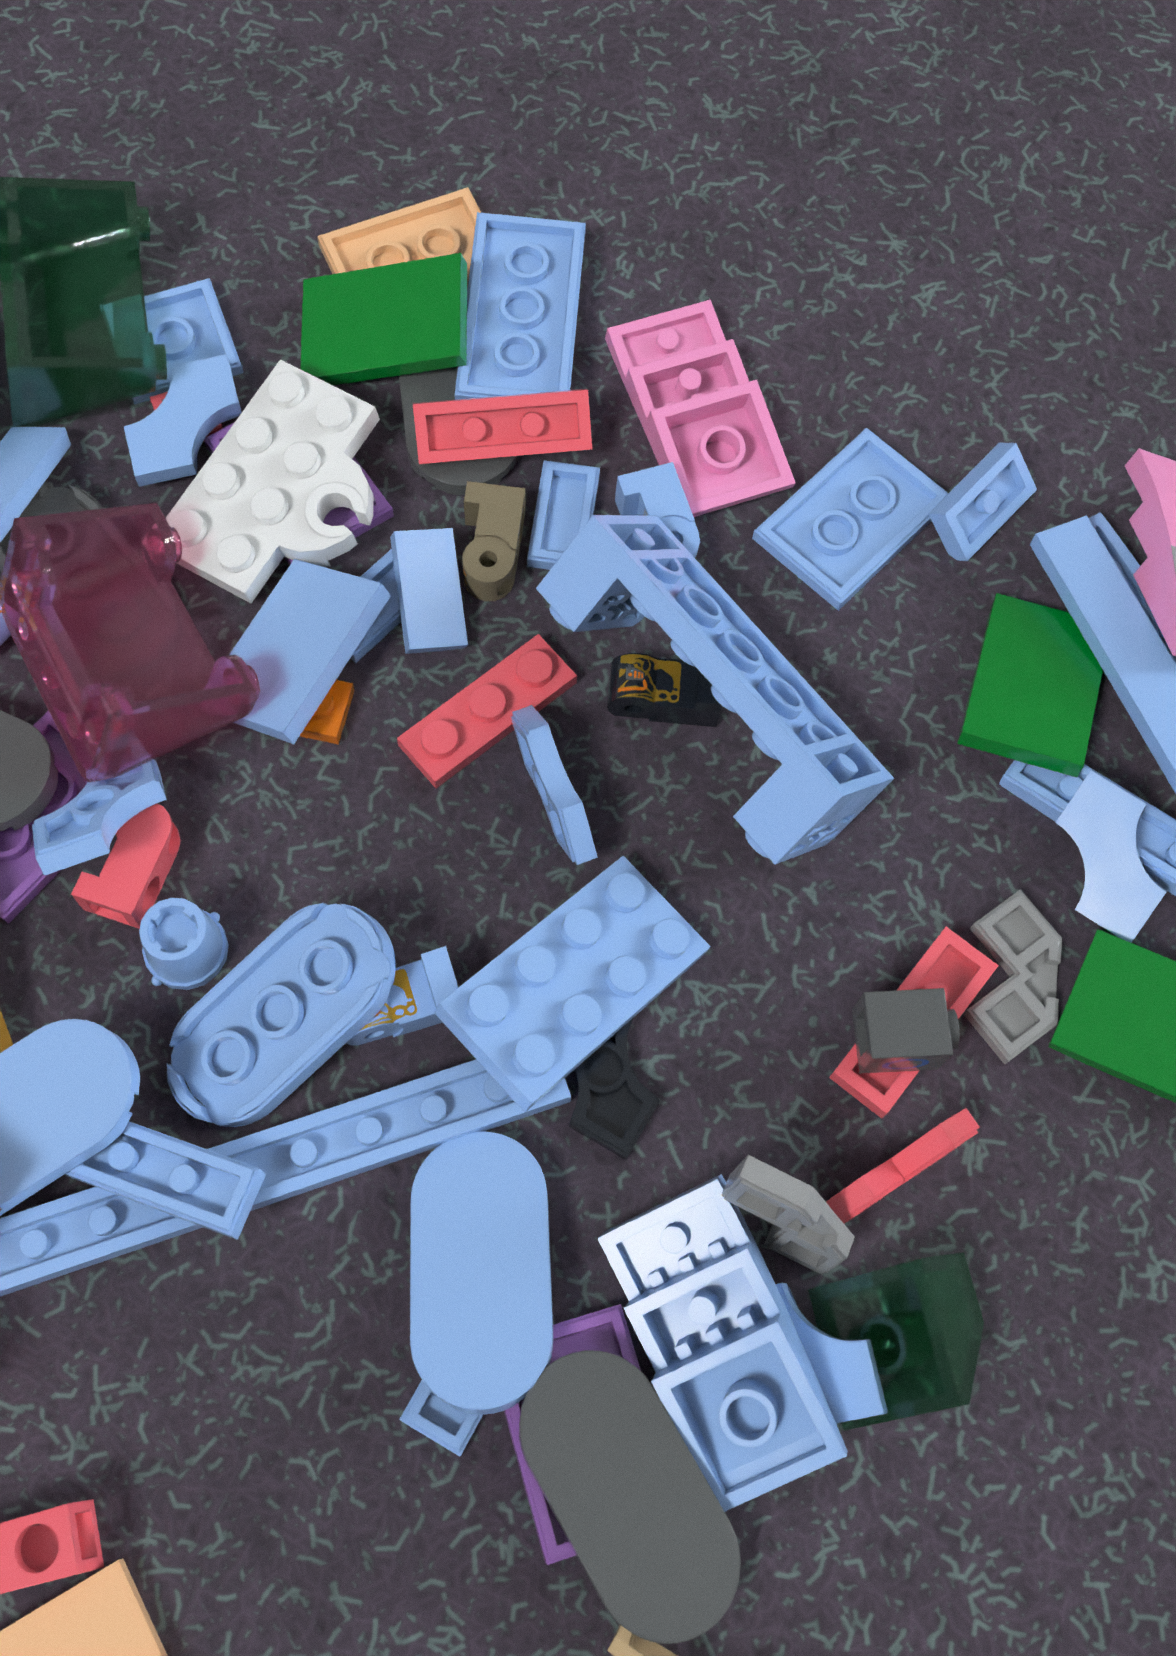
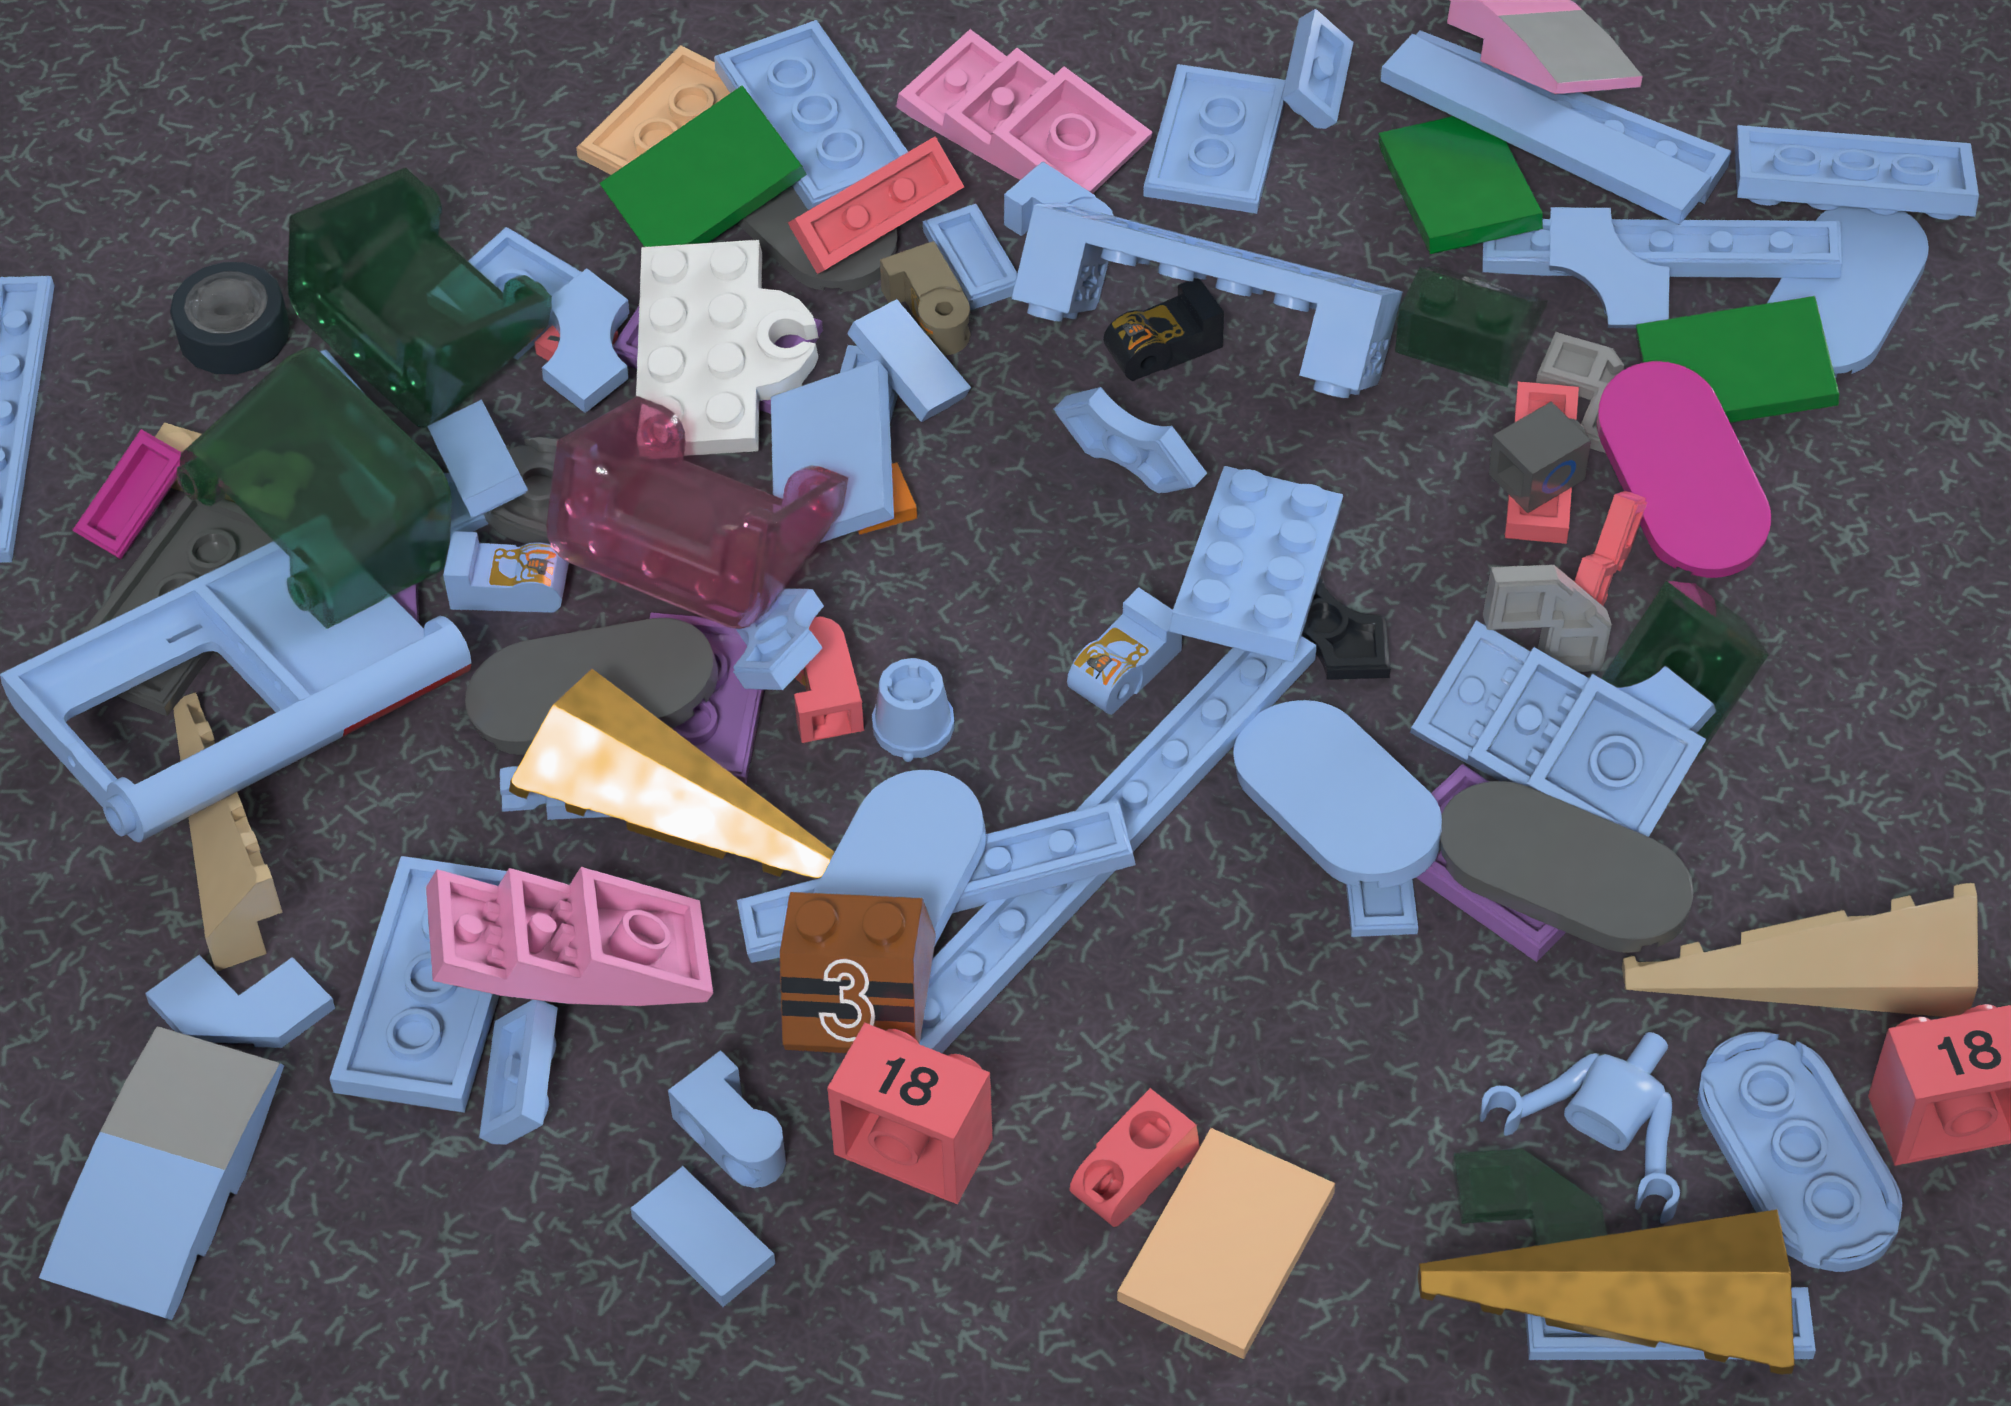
camera: 25 degrees left, 15 degrees down
(280, 1014) = (1040, 707): light blue tile -> none
(483, 710) = (1024, 428): coral plate -> none
(947, 832) = (1466, 324): none -> clear green slope
(1041, 1114) = (1685, 459): none -> dark pink tile

